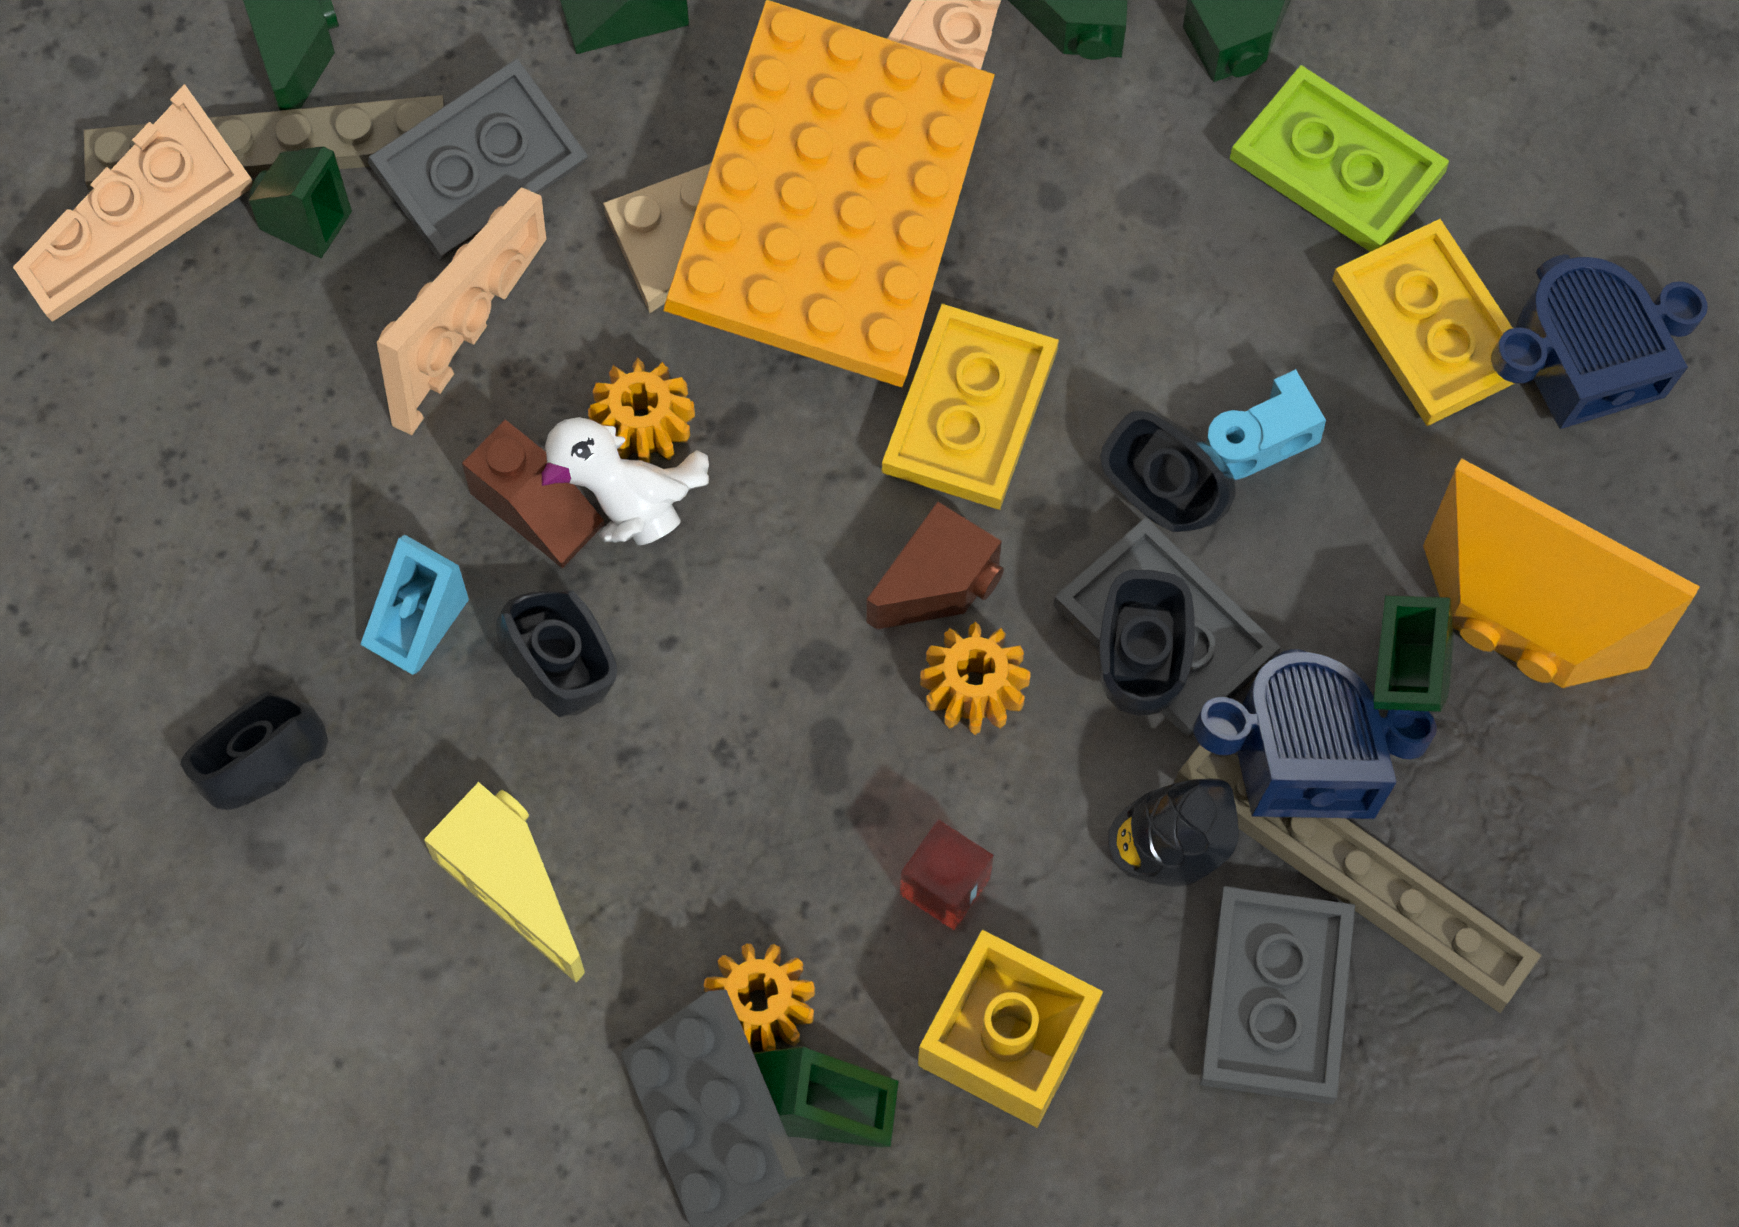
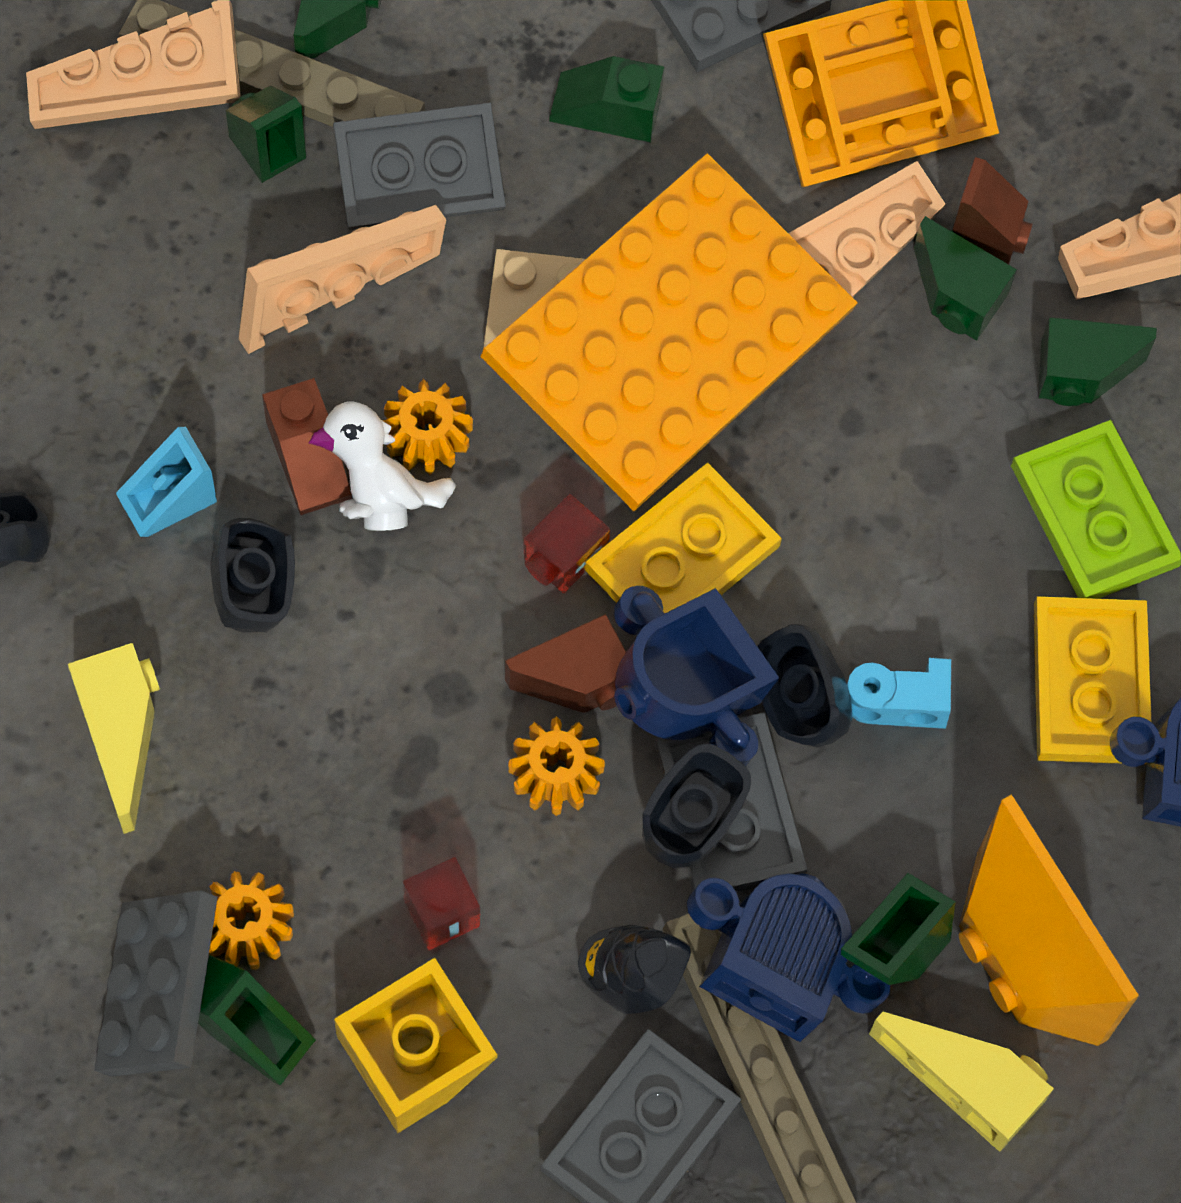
camera: 25 degrees right, 0 degrees up
(850, 456) = (563, 543): none -> clear red brick
(1055, 511) = (690, 670): none -> dark blue piece
(1562, 762) = (973, 1077): none -> light yellow slope

